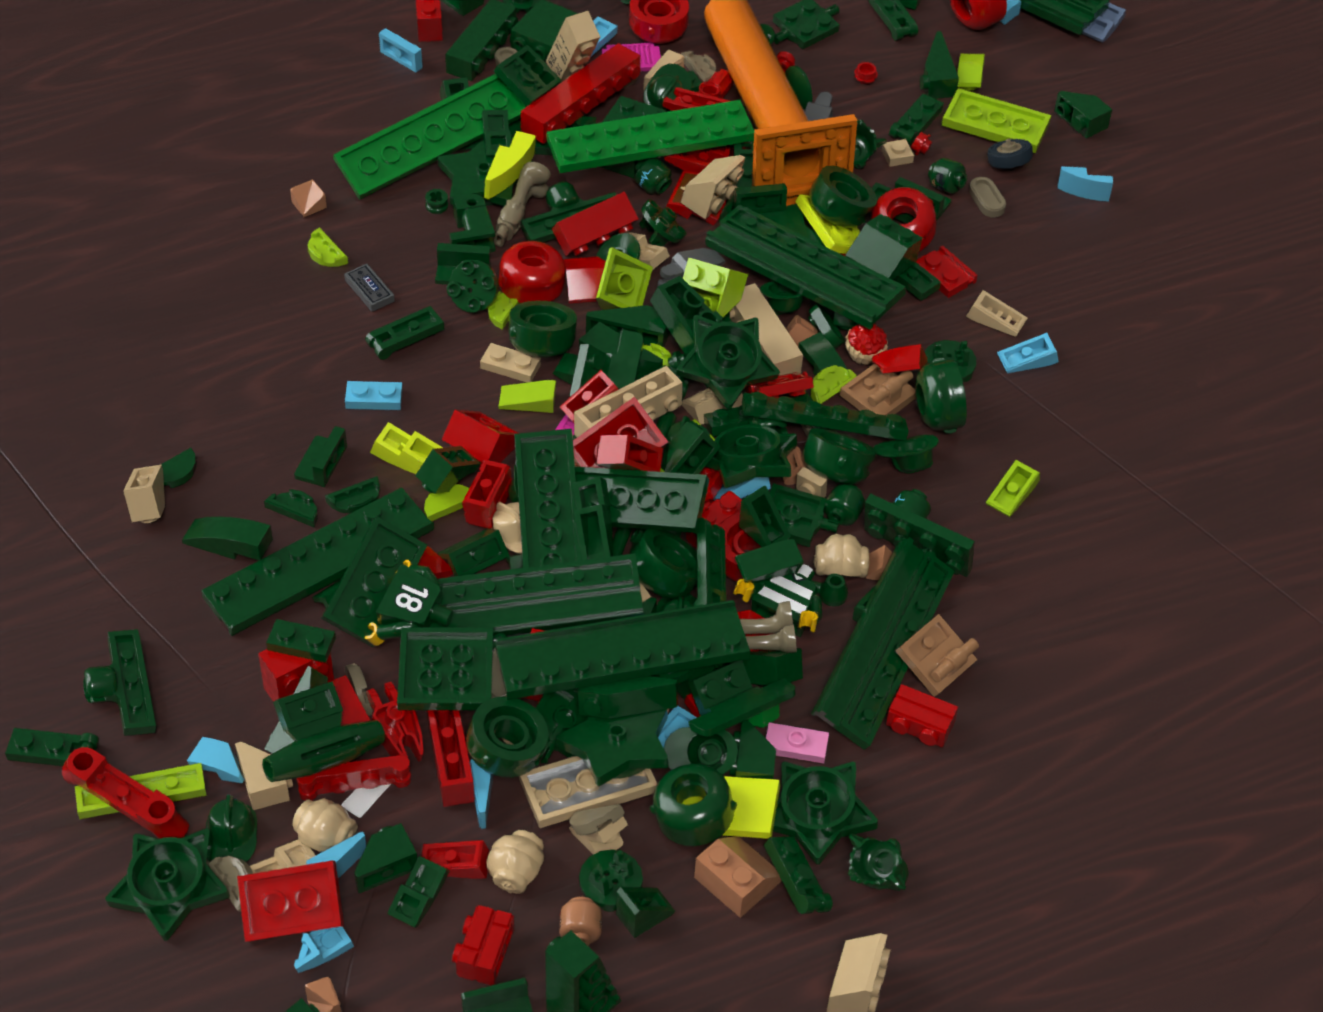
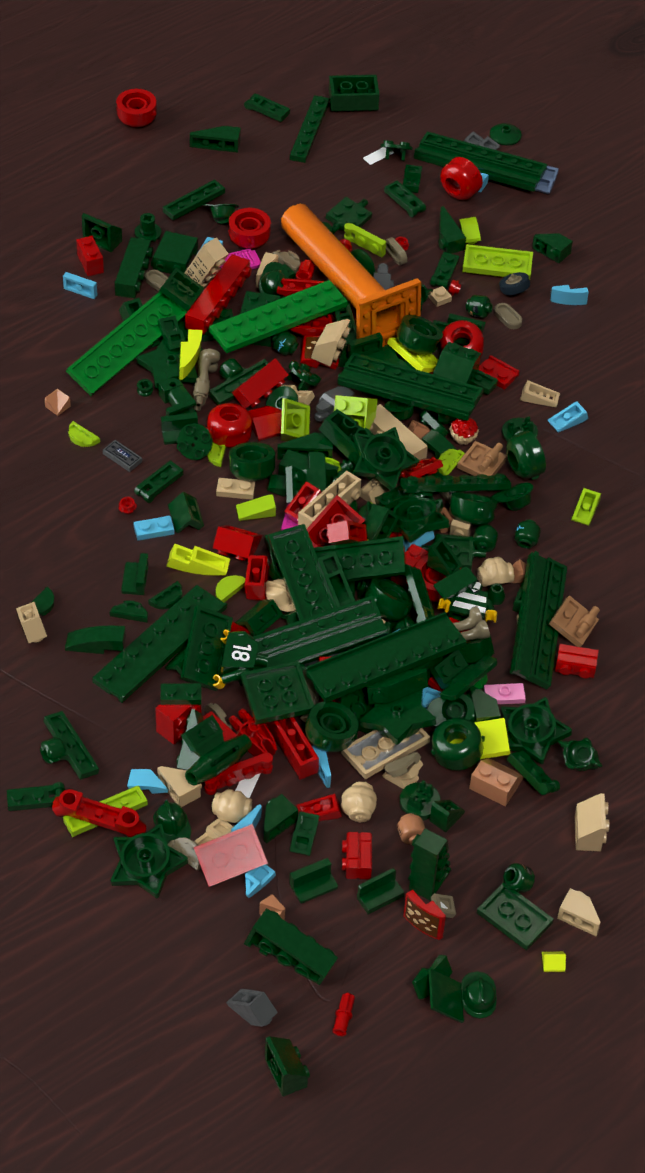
camera: 15 degrees left, 0 degrees up
(348, 356) = (127, 505): none -> red plate
(403, 969) = (313, 881): none -> dark green panel
(426, 381) = (185, 512): none -> dark green panel
(445, 468) = (224, 567): dark green arch -> none
(816, 58) = (365, 239): none -> lime plate
(854, 80) = (396, 251): none -> dark tan tile
(894, 523) = (522, 544): dark green plate -> none
(901, 359) = (491, 436): red slope -> none

